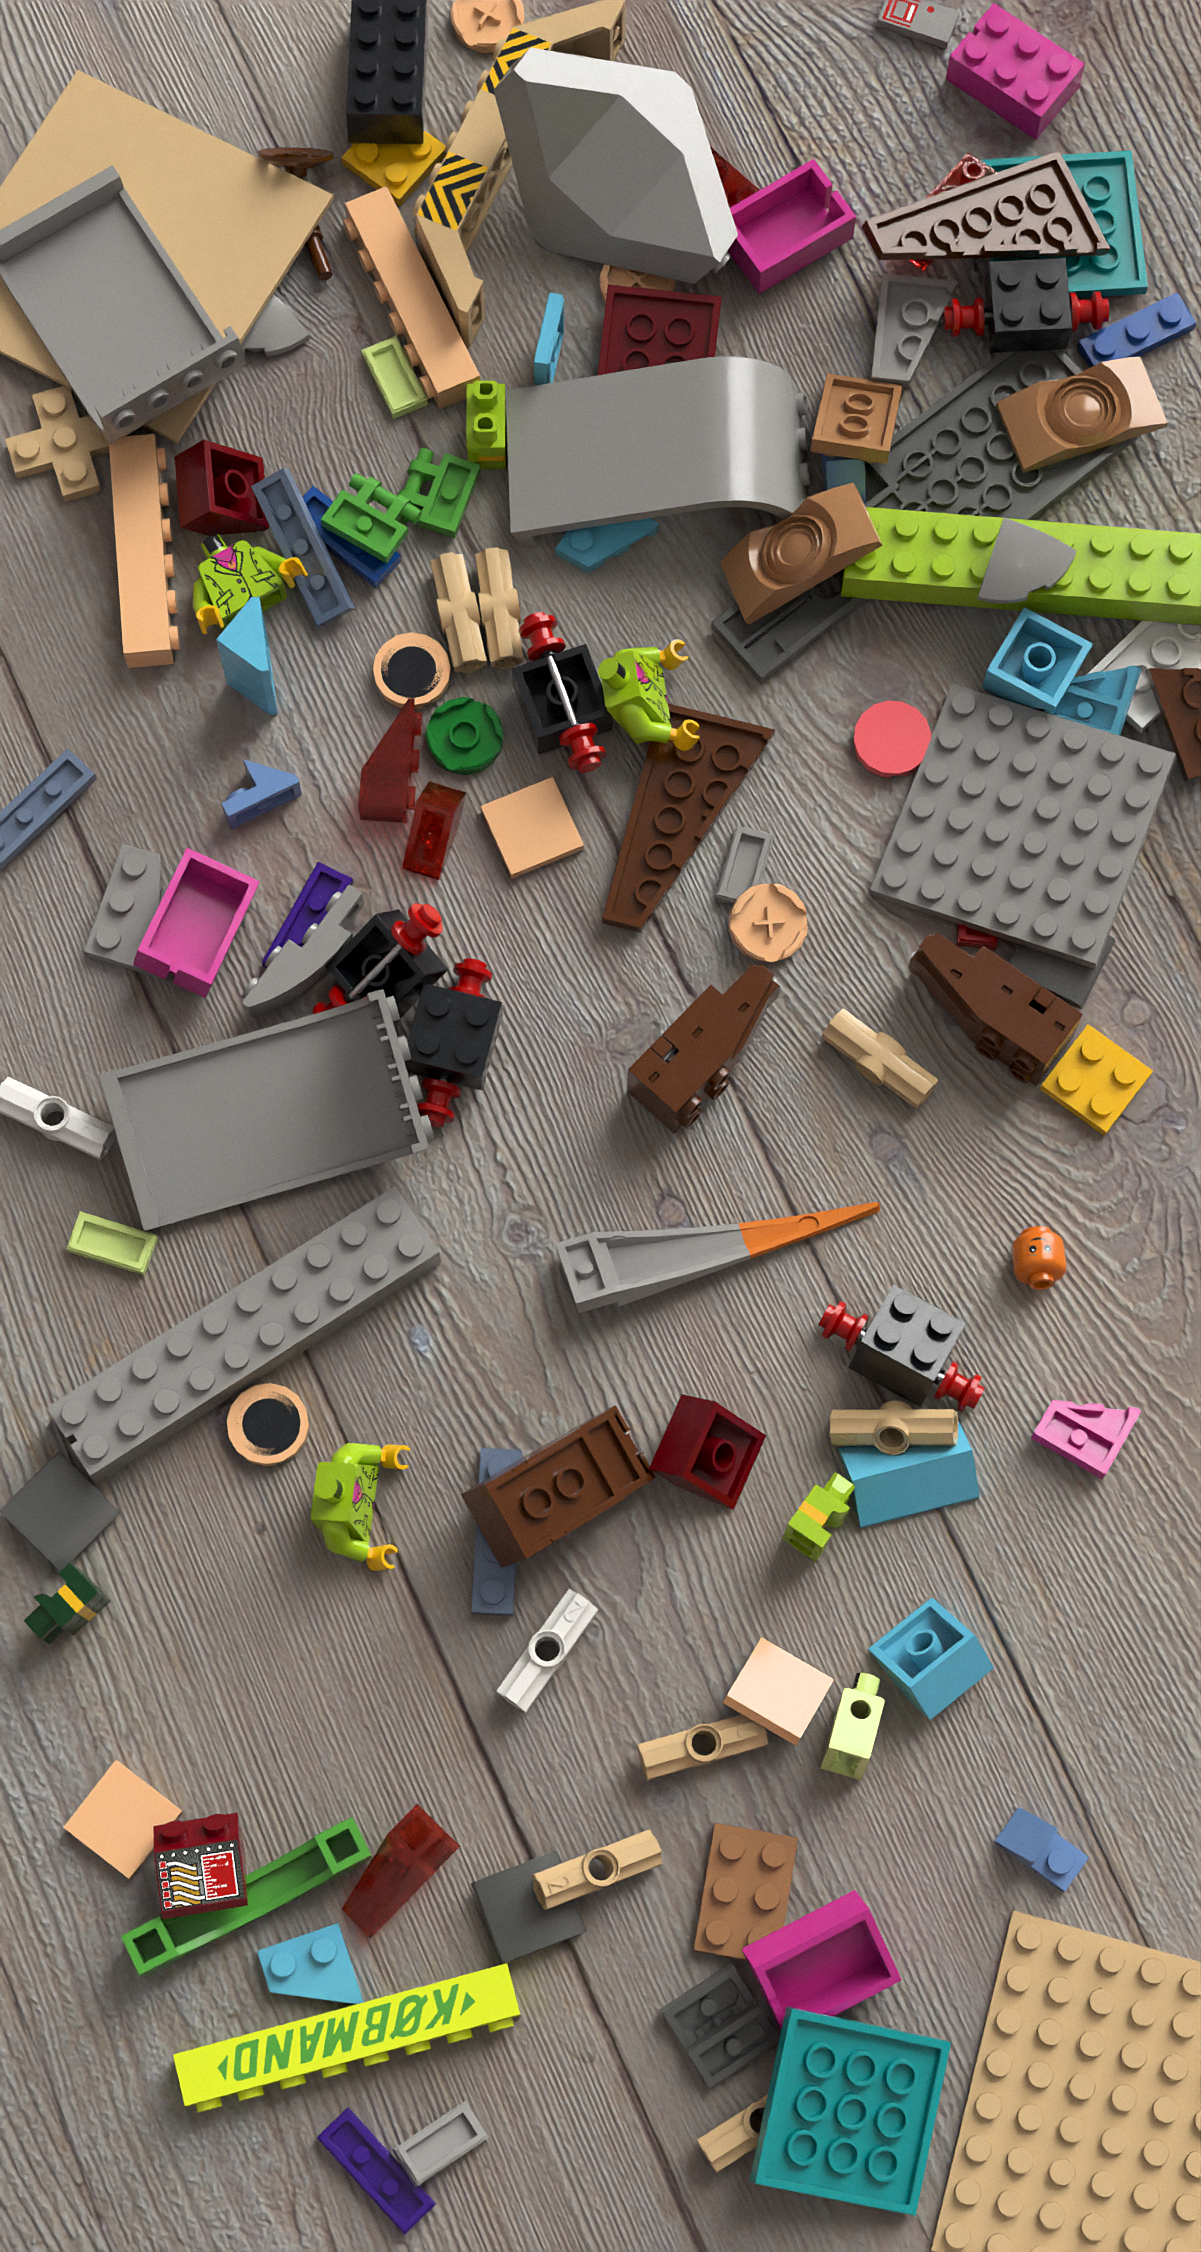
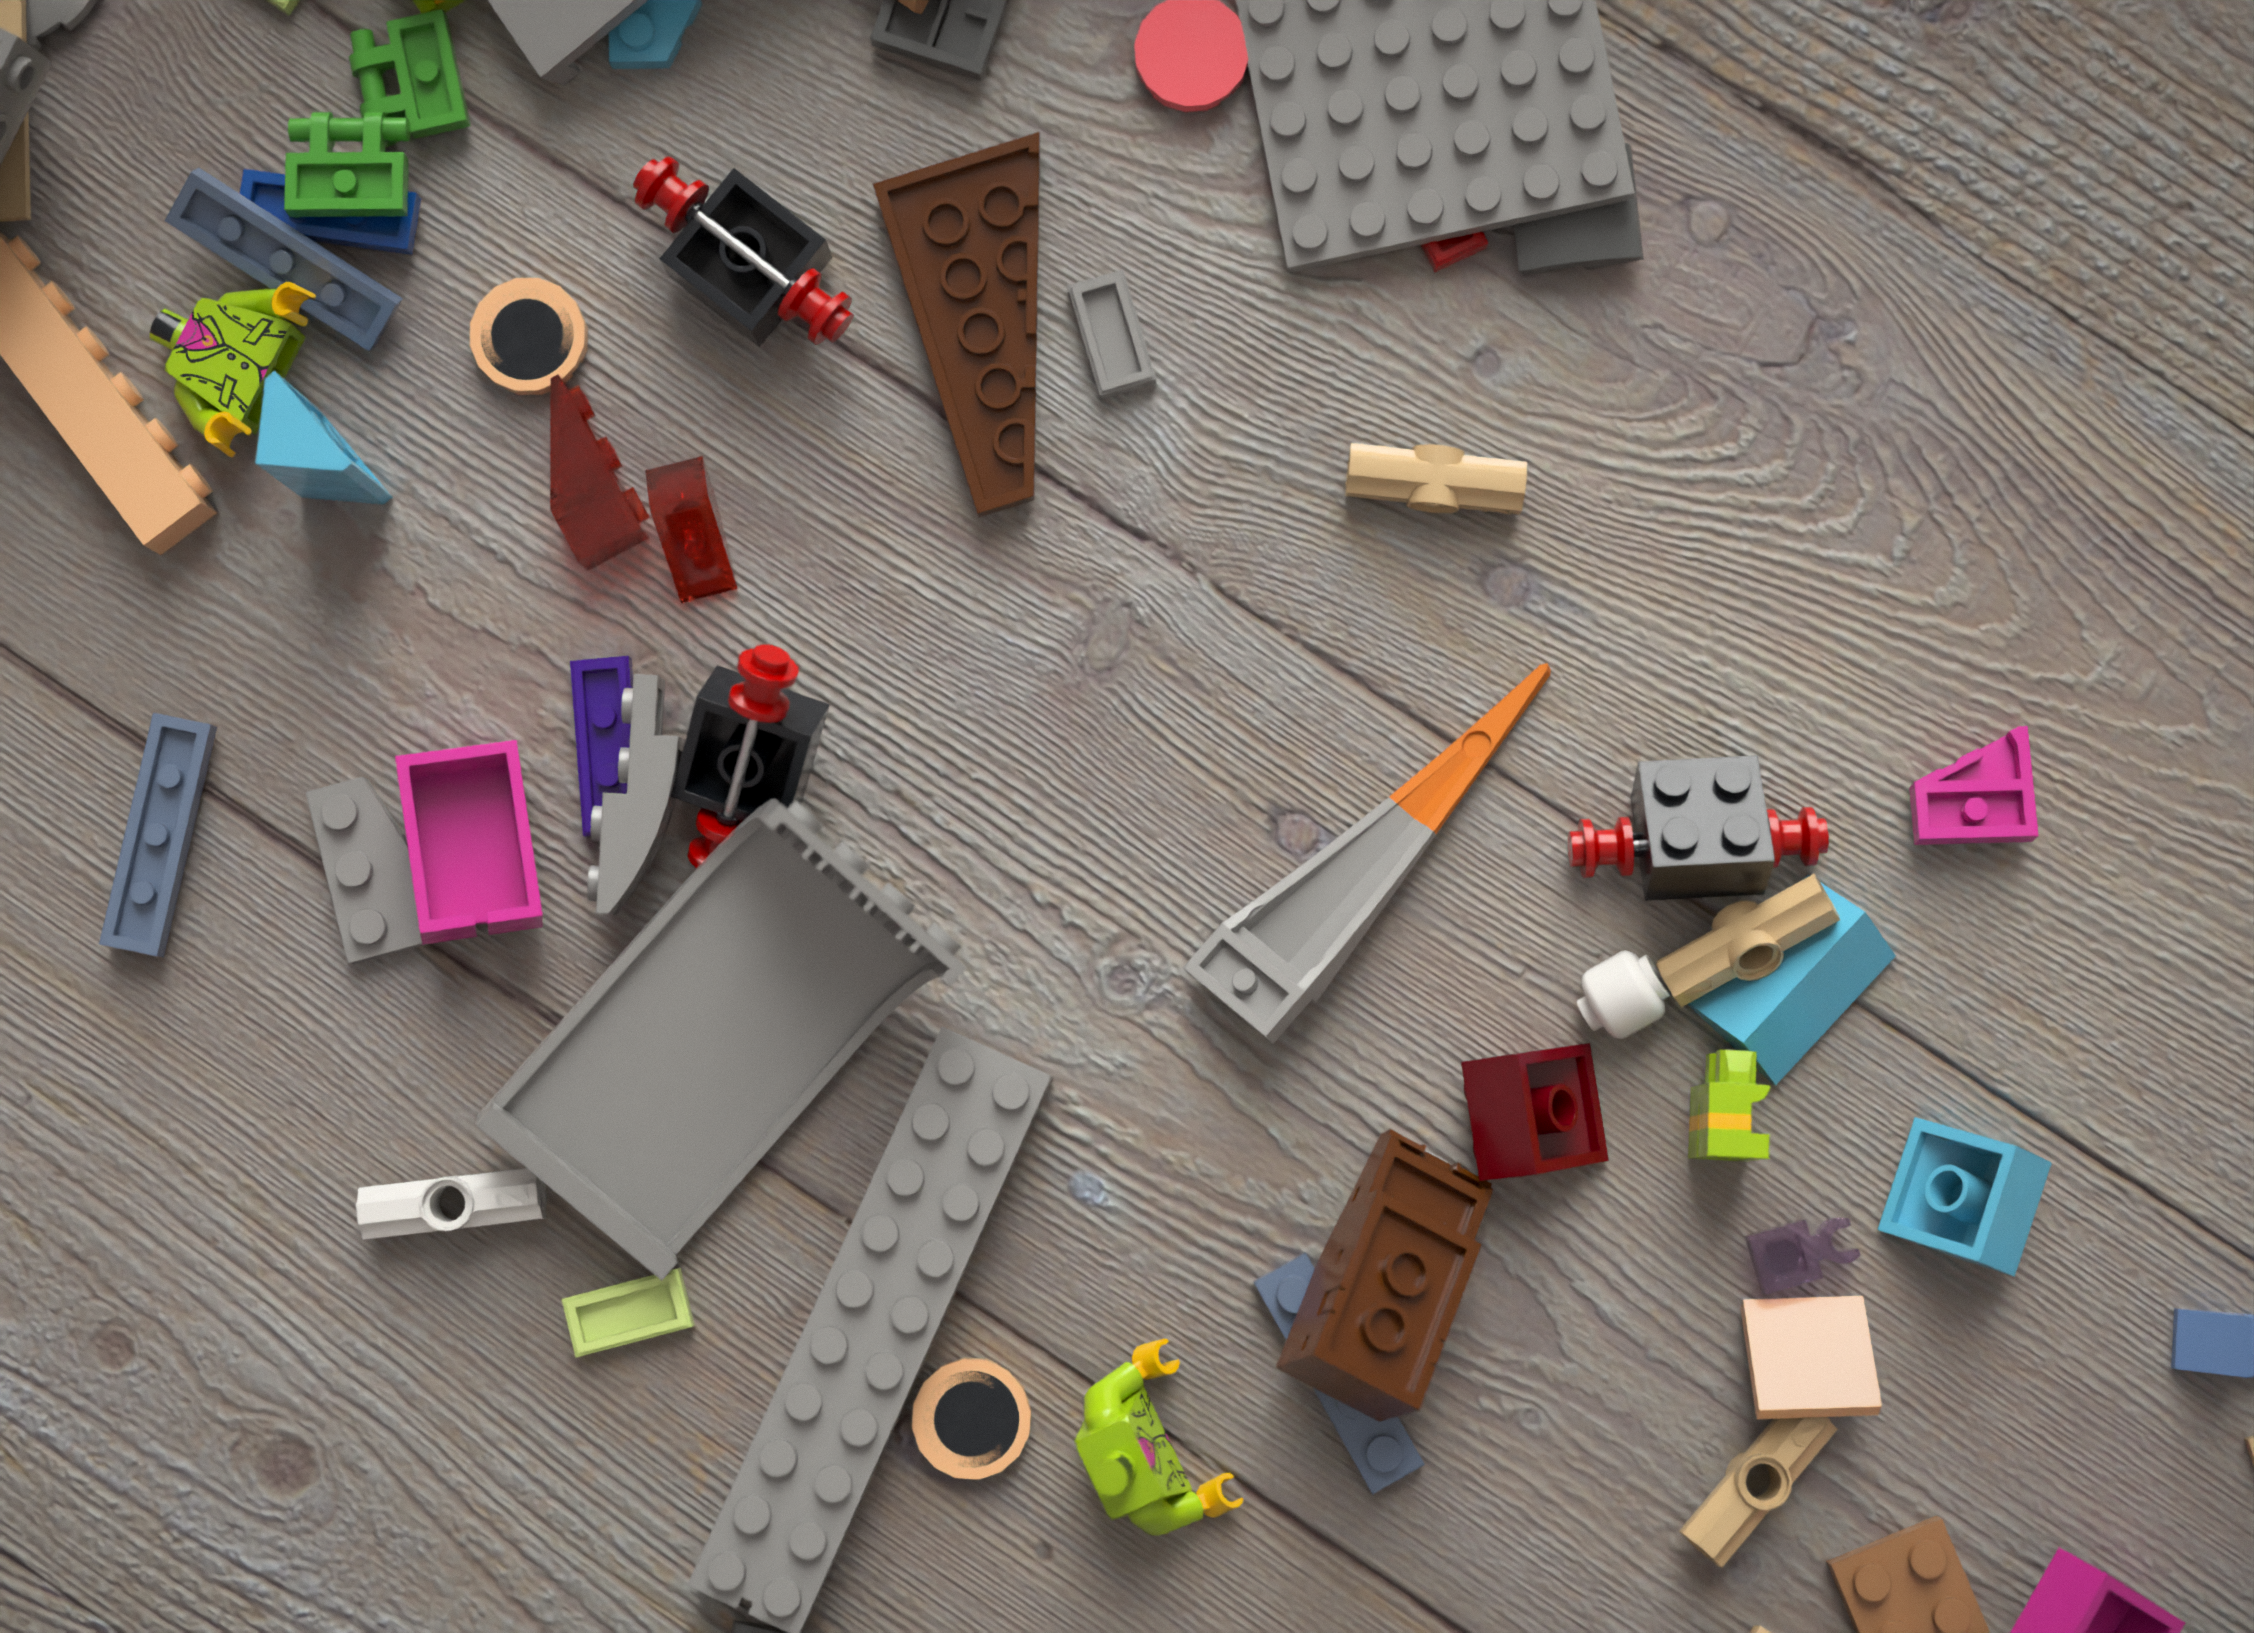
camera: 30 degrees left, 10 degrees up
(217, 490) = (122, 250): dark red slope -> none
(269, 791) = (450, 607): medium blue slope -> none
(453, 1039) = (891, 786): black brick -> none
(458, 613) = (539, 223): tan piece -> none
(464, 736) = (650, 380): green tile -> none
(499, 608) = (587, 185): tan piece -> none
(532, 827) = (812, 448): light nougat tile -> none
(564, 1629) = (1497, 1524): white piece -> none
(638, 696) = (842, 195): lime torso -> none
(701, 1049) = (1214, 609): reddish brown piece -> none
(768, 922) = (1187, 389): light nougat tile -> none
(801, 1416) = (1623, 994): none -> white head
(805, 1627) = (1791, 1255): none -> clear purple plate
(850, 1737) = (1936, 1368): yellowish green torso -> none
(997, 1006) = (1548, 324): reddish brown piece -> none
(1038, 1257) = (1788, 612): orange head -> none
(1096, 1080) = (1714, 339): yellow plate -> none

